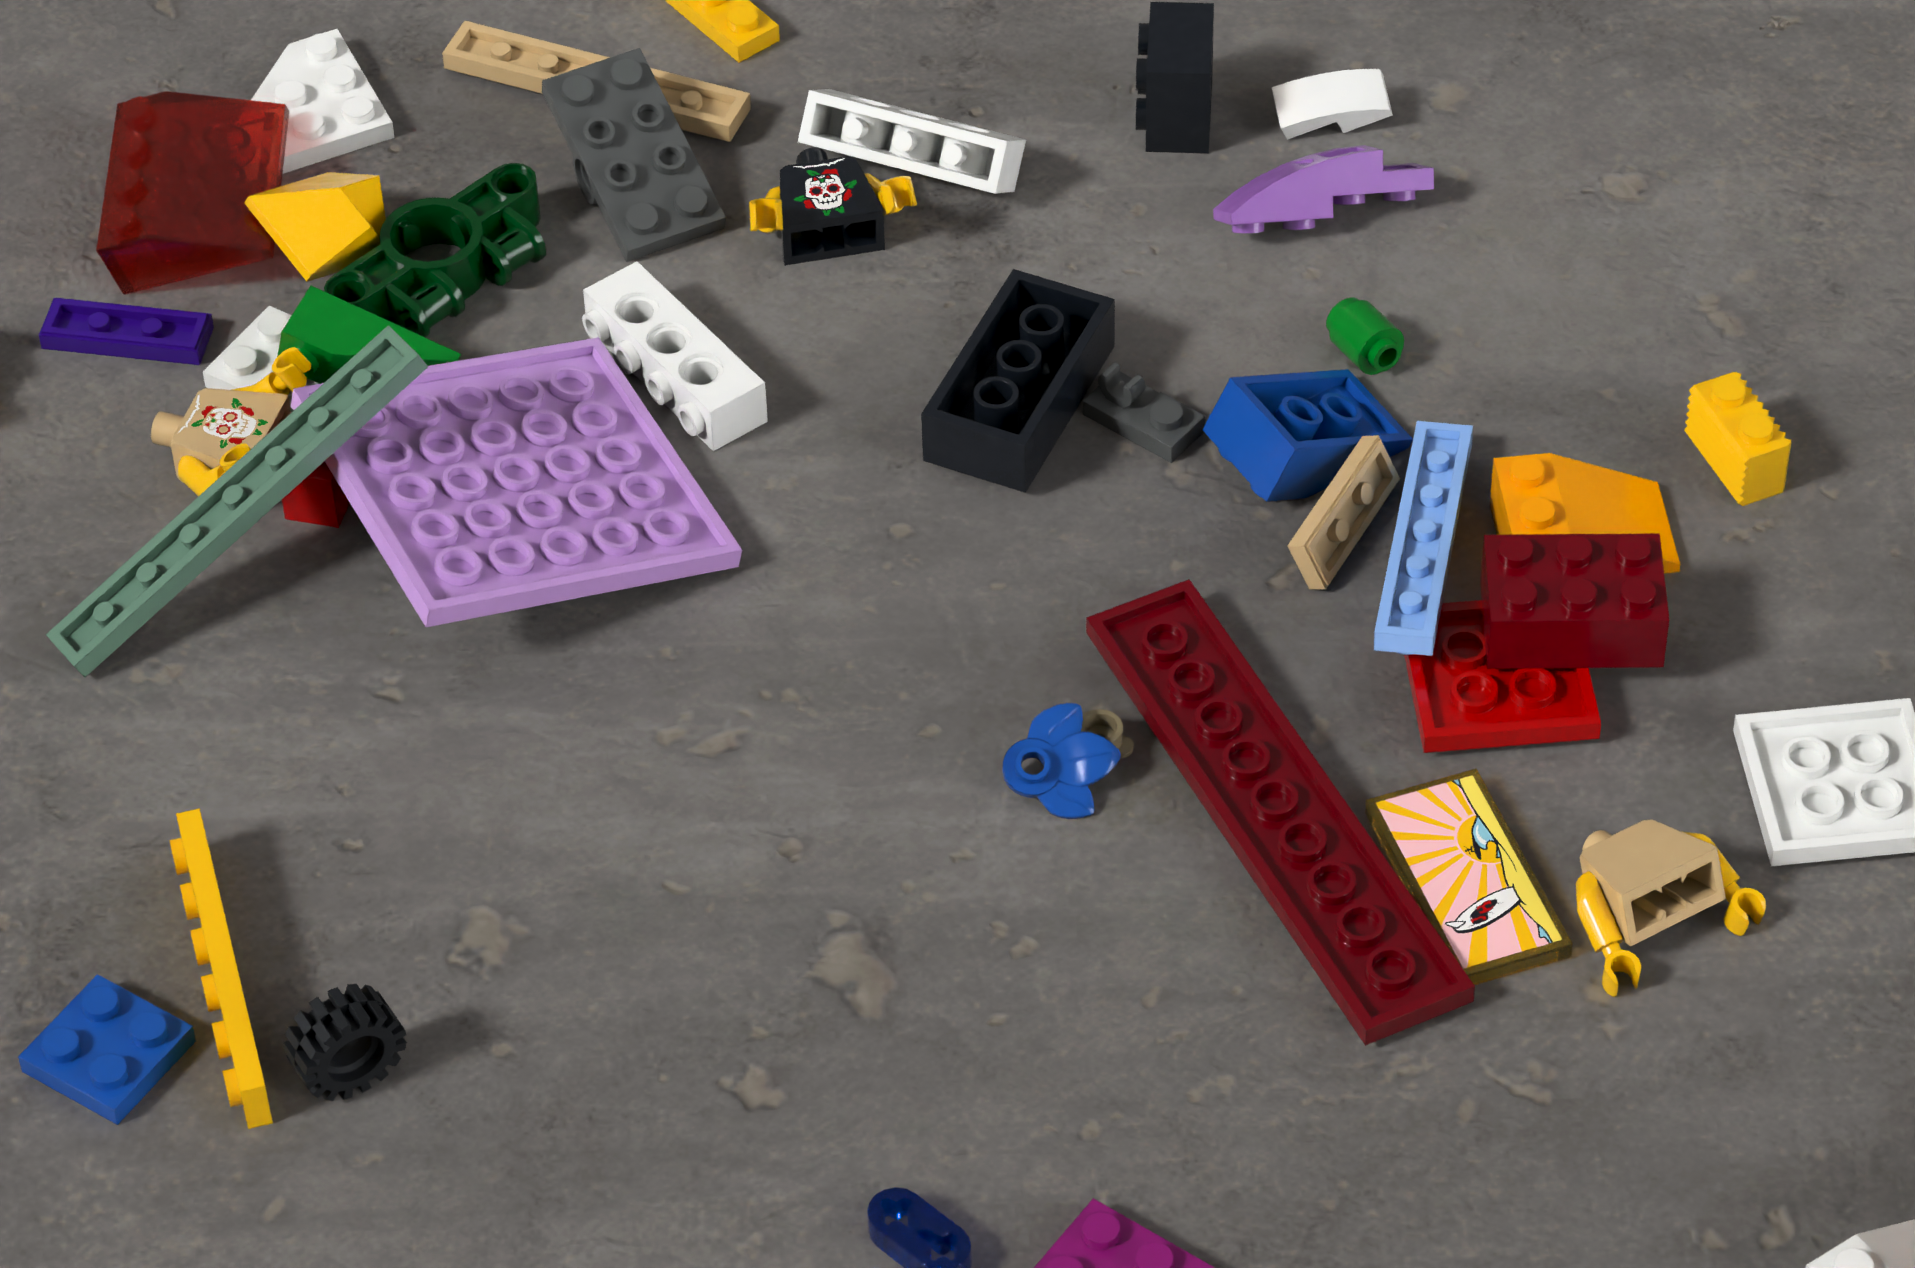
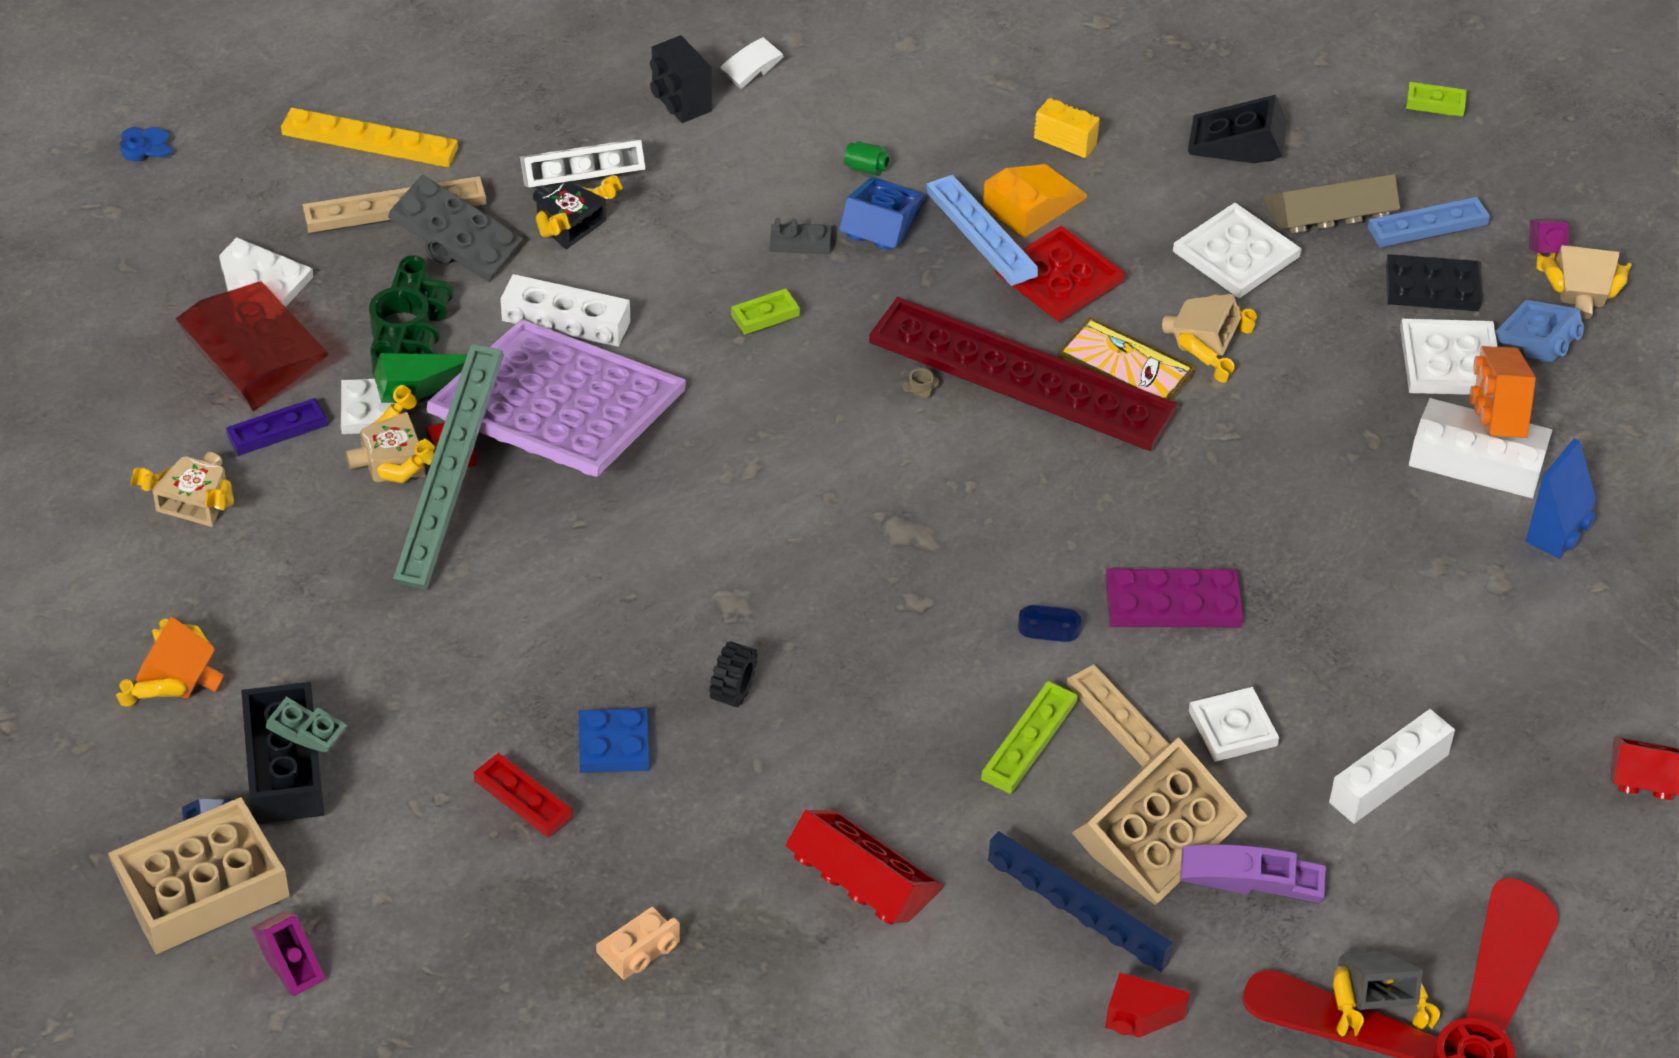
camera: 40 degrees left, 0 degrees up
(222, 987) = (636, 675): yellow plate -> none
(322, 220) = (337, 324): yellow slope -> none
(969, 503) = (765, 311): none -> lime plate
(1018, 380) = (740, 245): black brick -> none
(1069, 761) = (919, 397): blue plate -> none
(1312, 184) = (785, 102): medium lavender slope -> none
(1343, 512) = (934, 237): tan tile -> none
(1574, 601) = (1075, 224): dark red brick -> none

